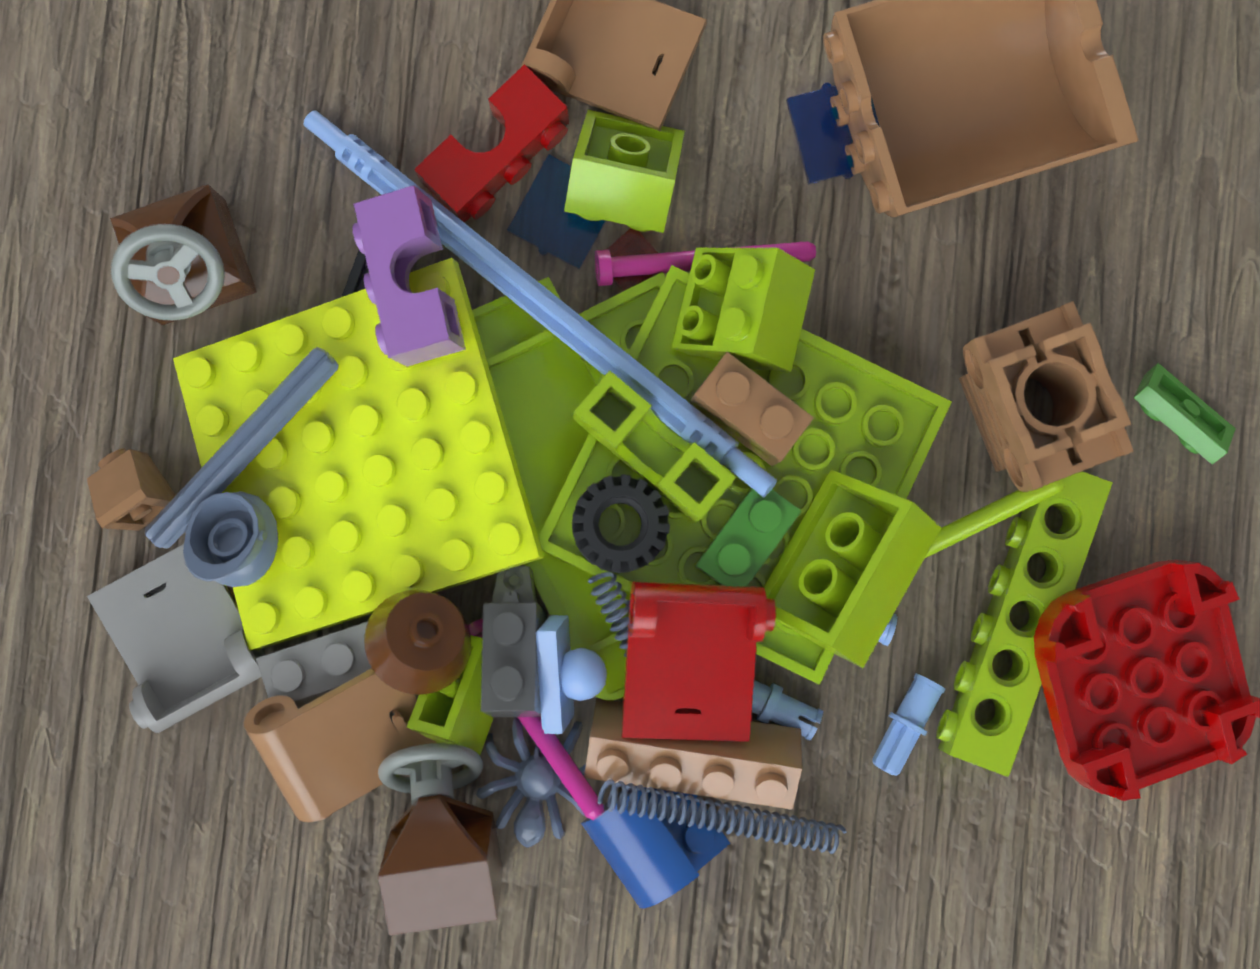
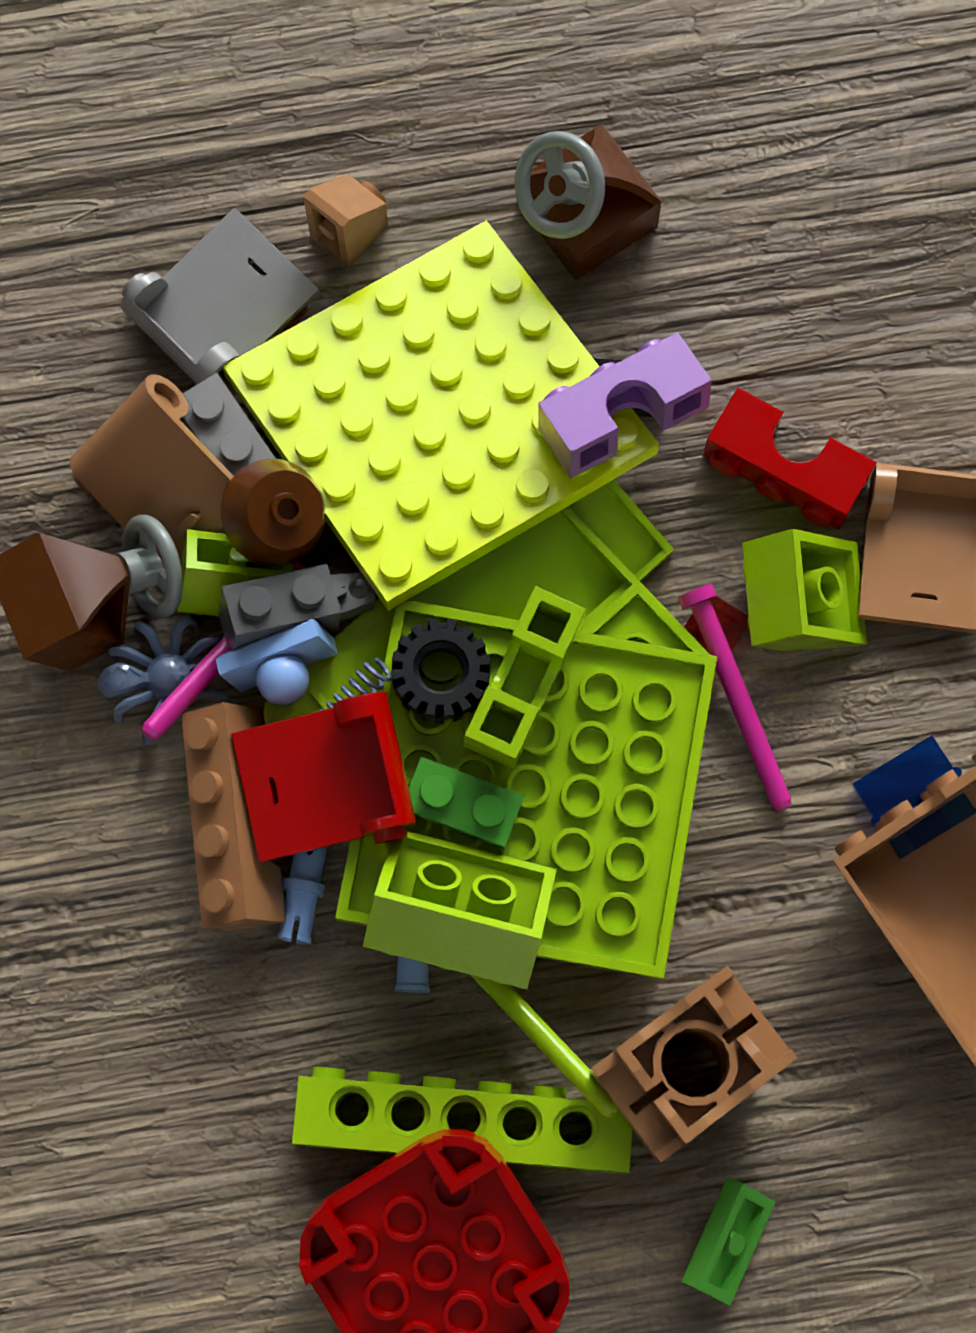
camera: 75 degrees right, 10 degrees down
(231, 539) = (324, 316): sand blue piece -> none
(243, 446) = (416, 303): sand blue axle -> none
(545, 223) = (724, 531): clear blue piece -> none
(549, 309) = (635, 550): light blue axle -> none
(653, 855) = (137, 808): blue brick -> none
(692, 815) = (182, 849): sand blue piece -> none
(744, 306) = (693, 734): lime slope -> none
(751, 410) = (590, 765): medium nougat brick -> none
(907, 724) = (318, 1035): light blue axle -> none

